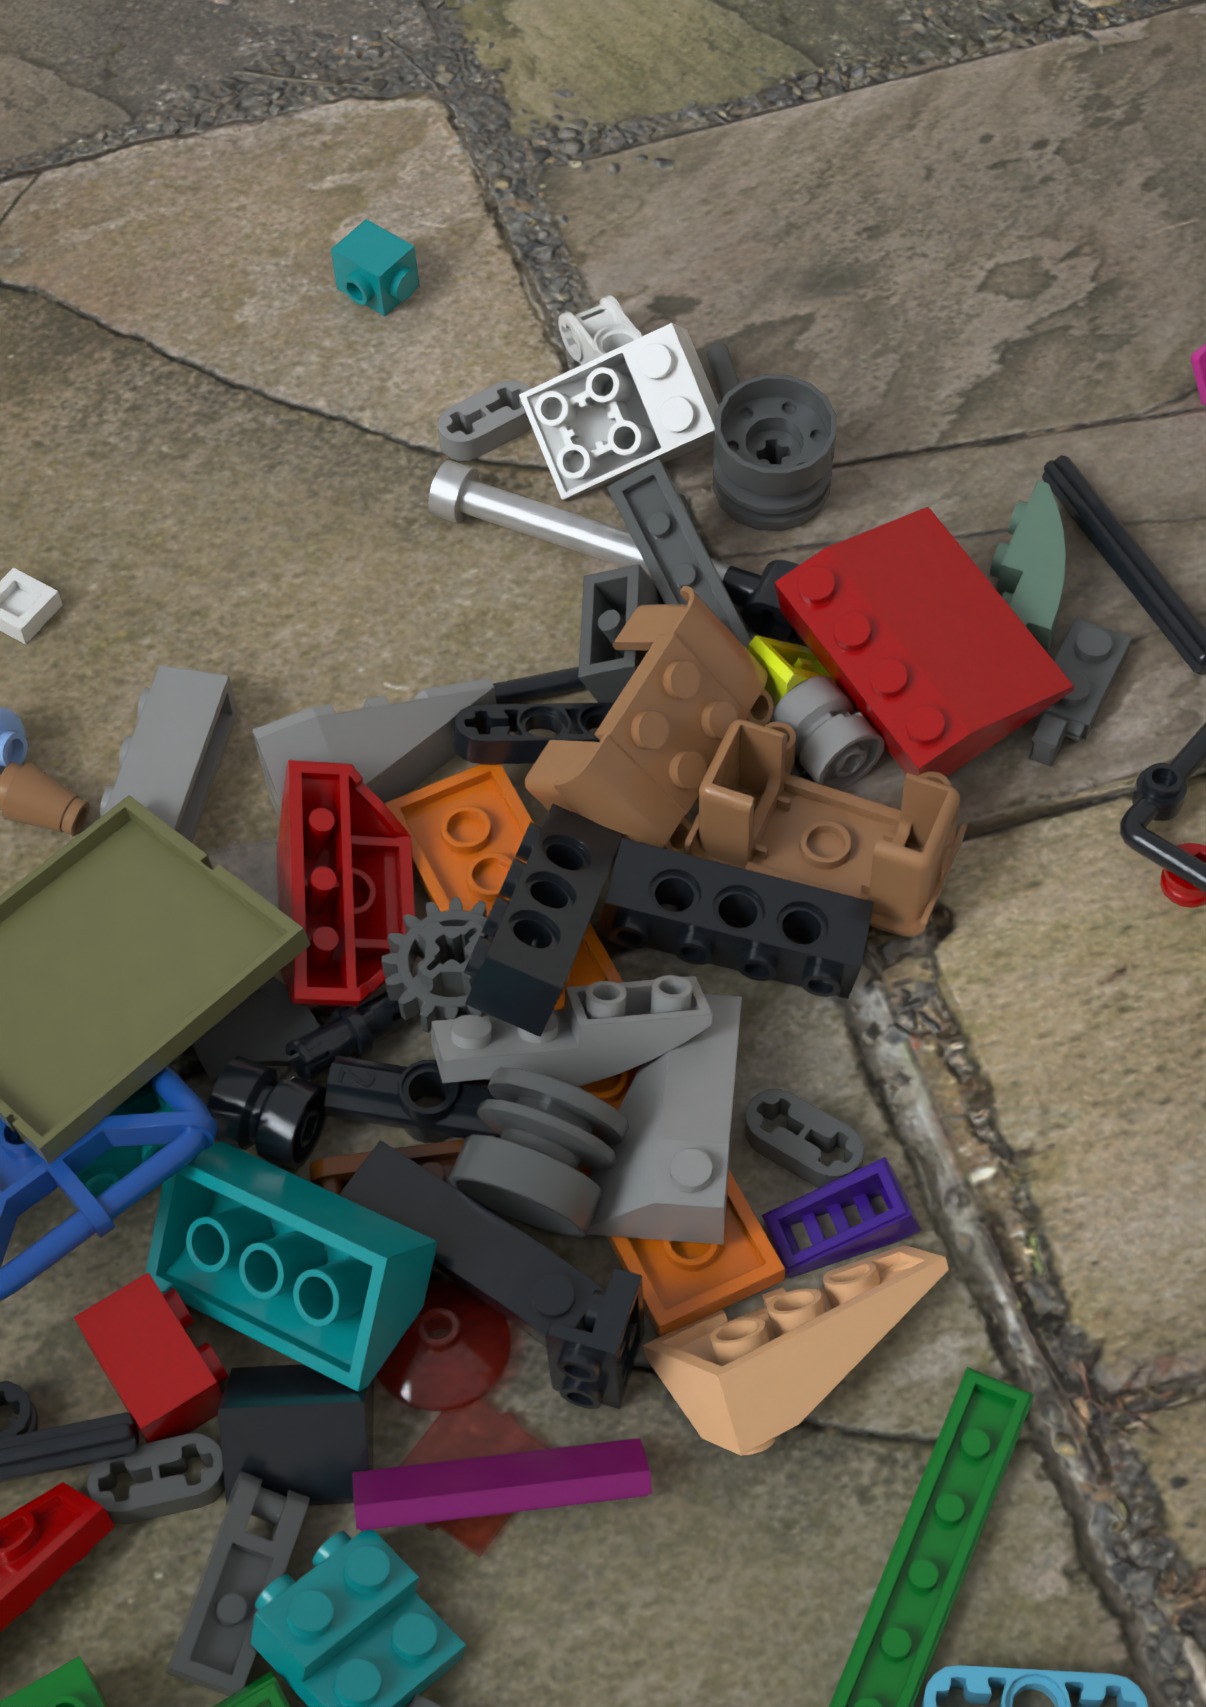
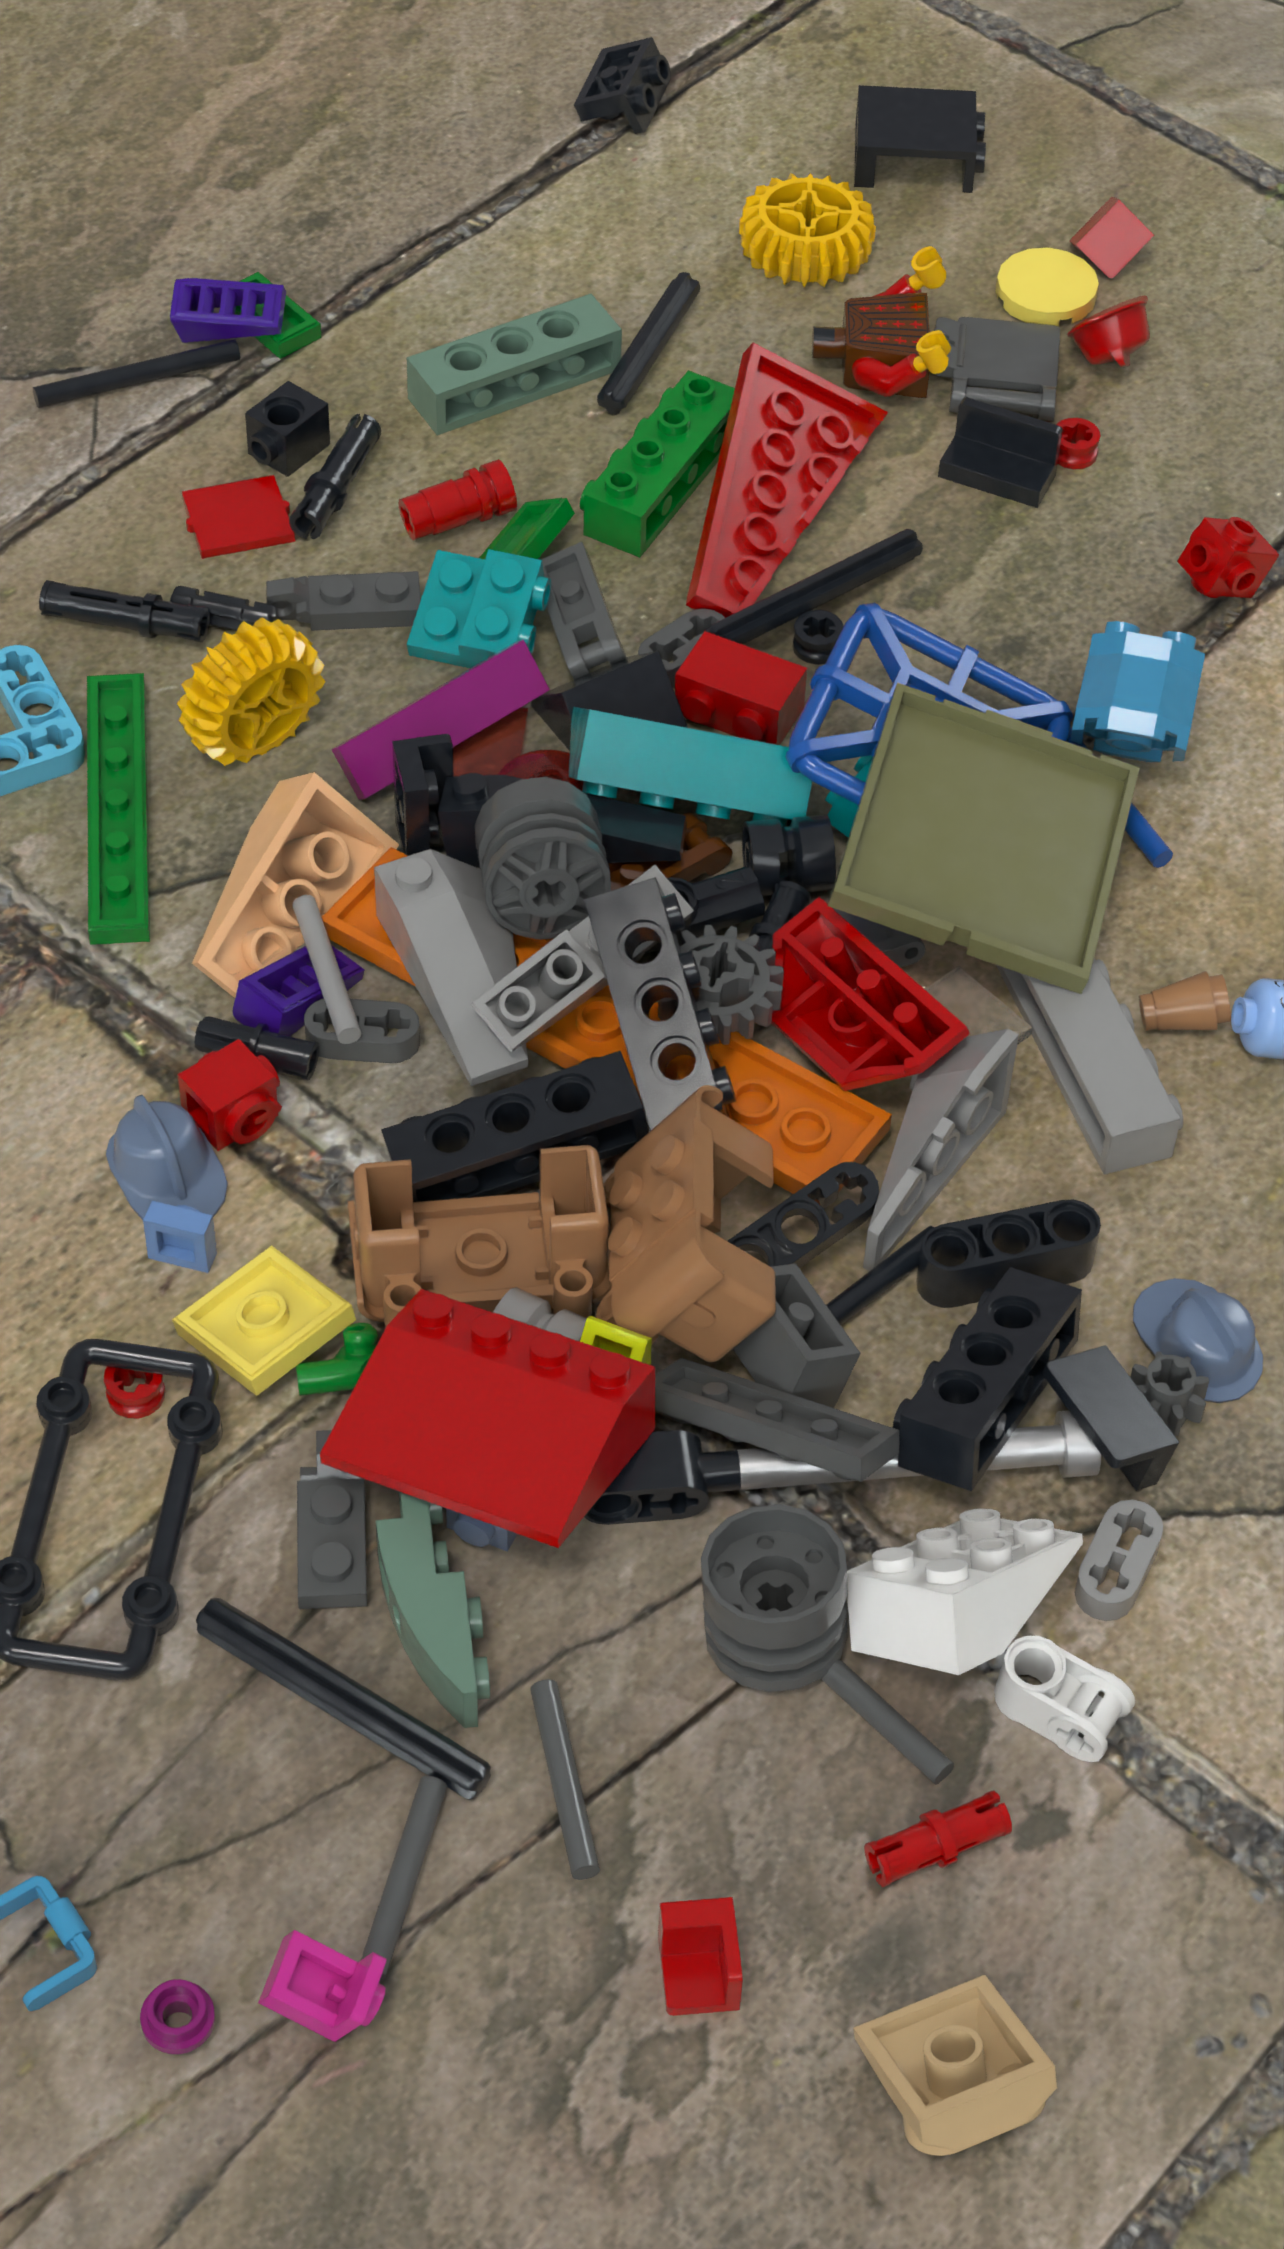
camera: 145 degrees right, 5 degrees down
(284, 547) = (1208, 1327): none -> sand blue piece
(356, 497) = (1172, 1389): none -> dark grey gear
(381, 648) = (975, 1253): none -> black beam
(418, 484) = (1113, 1414): none -> black panel
(500, 503) = (987, 1378): none -> black brick
(707, 1601) = (251, 691): none -> yellow gear
(753, 310) = (938, 1838): none -> red pin
(811, 1197) = (326, 969): none -> light grey bar
(839, 180) = (958, 2067): none -> tan slope
(920, 1163) = (284, 1052): none -> black axle
(958, 310) = (700, 1956): none -> red panel
(976, 1107) = (231, 1095): none -> red brick
(989, 451) = (564, 1780): none -> dark grey bar
(999, 808) = (345, 1368): none -> green arm
(1051, 872) = (264, 1320): none -> light yellow plate
(1067, 1089) = (165, 1159): none -> sand blue piece
(1093, 979) = (180, 1236): none -> medium blue plate
(1144, 435) = (405, 1869): none -> dark grey bar

